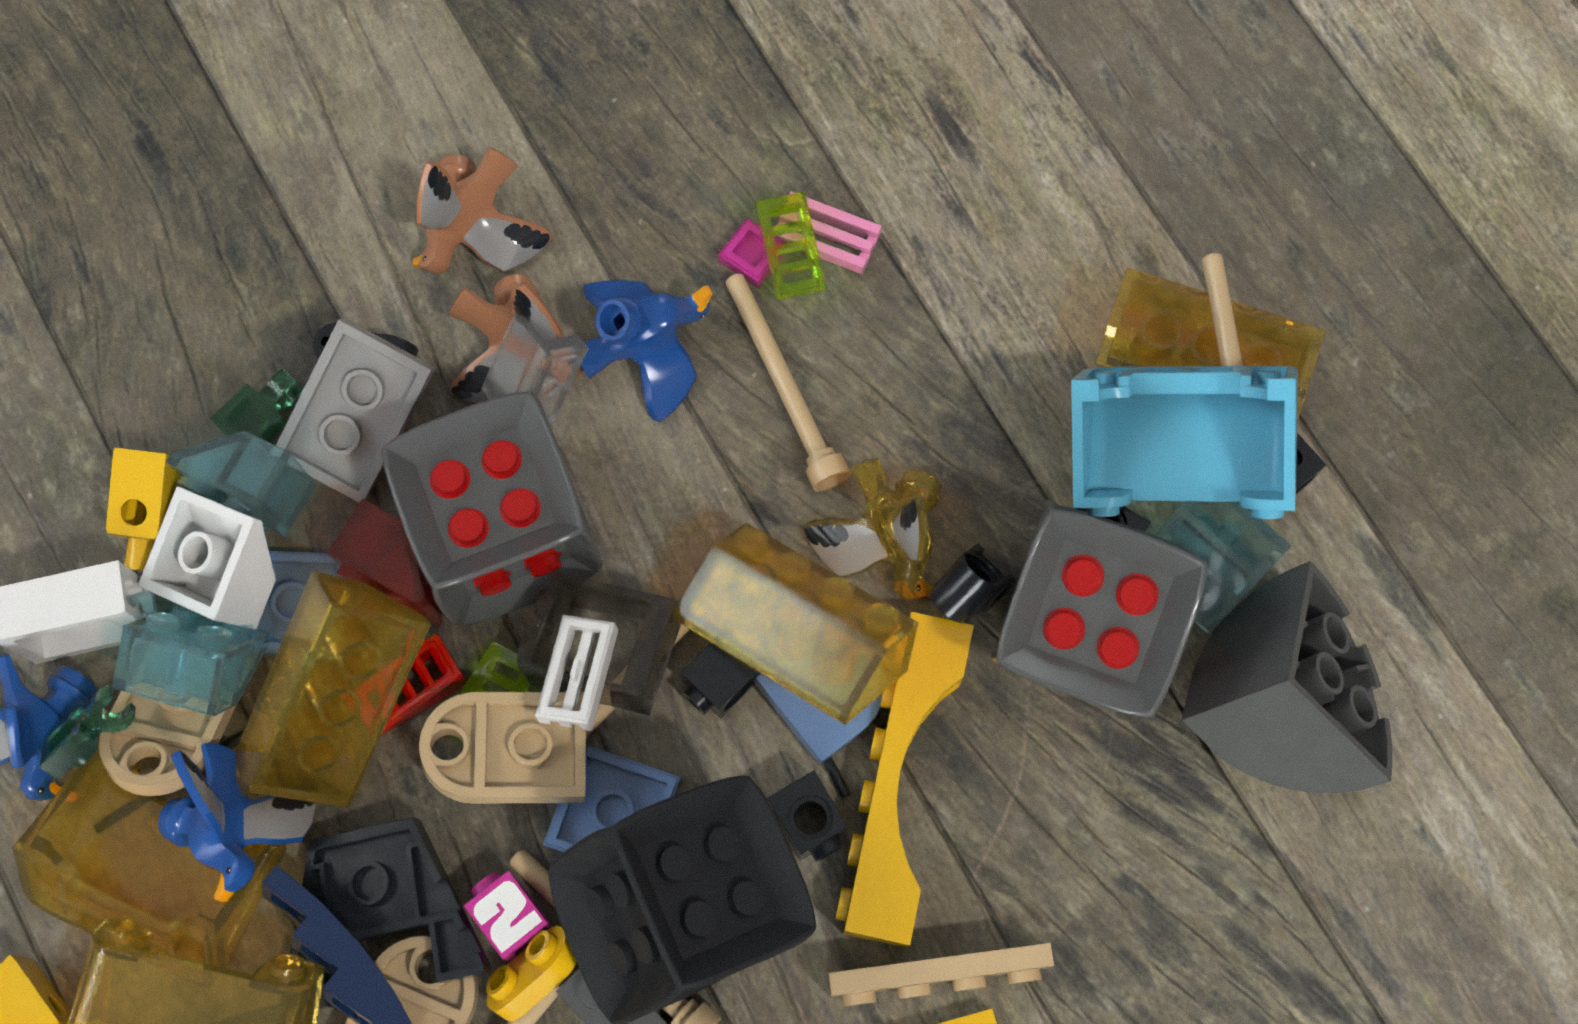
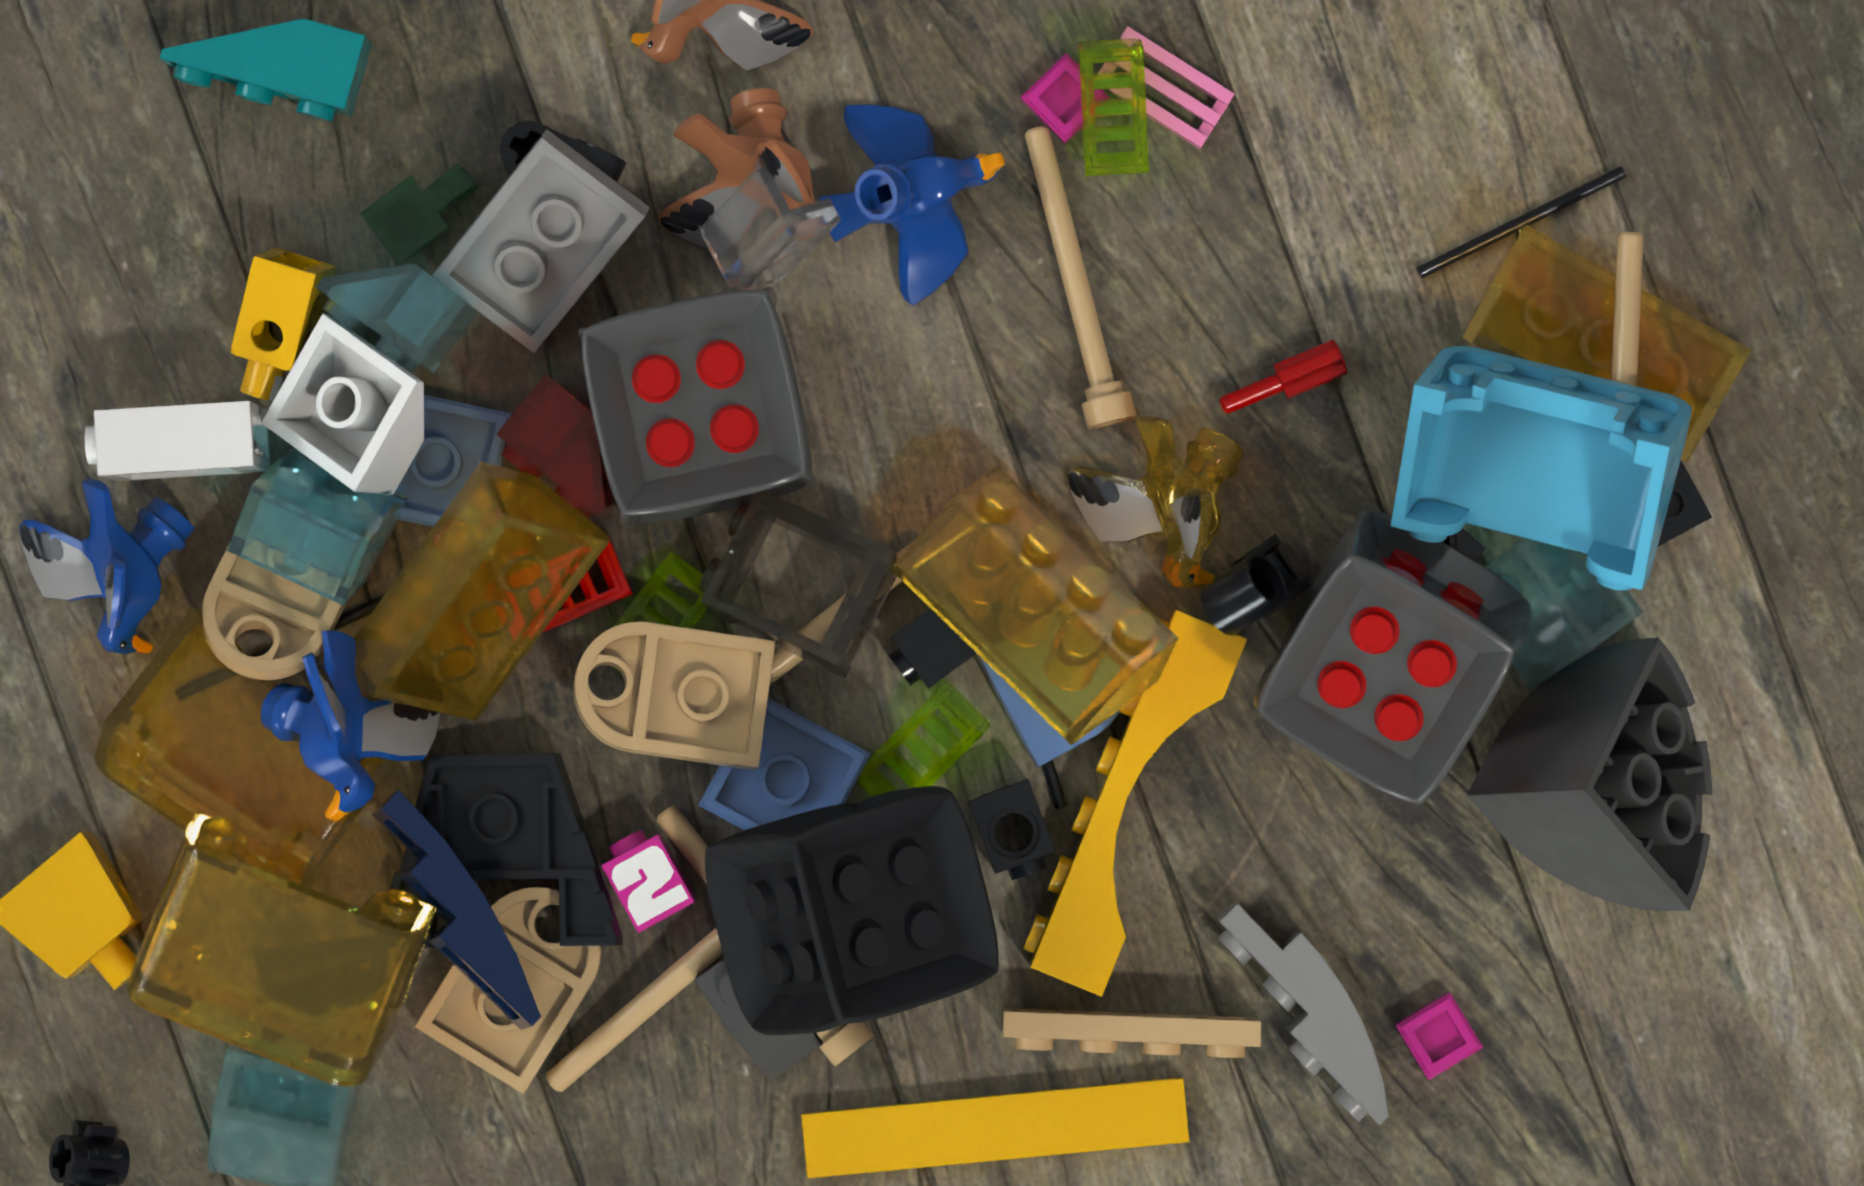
camera: 10 degrees right, 15 degrees up
(77, 737) = (180, 595): clear green plate -> none
(144, 316) = (288, 60): none -> teal slope
(530, 975) = (666, 953): yellow plate -> none
(567, 714) = (751, 673): white tile -> none
(744, 727) = (957, 710): none -> clear neon green slope
(967, 424) = (1292, 377): none -> red axle
(1108, 942) = (1329, 1028): none -> light grey slope
(1112, 290) = (1528, 218): none -> black axle
(1199, 934) = (1438, 1035): none -> dark pink tile

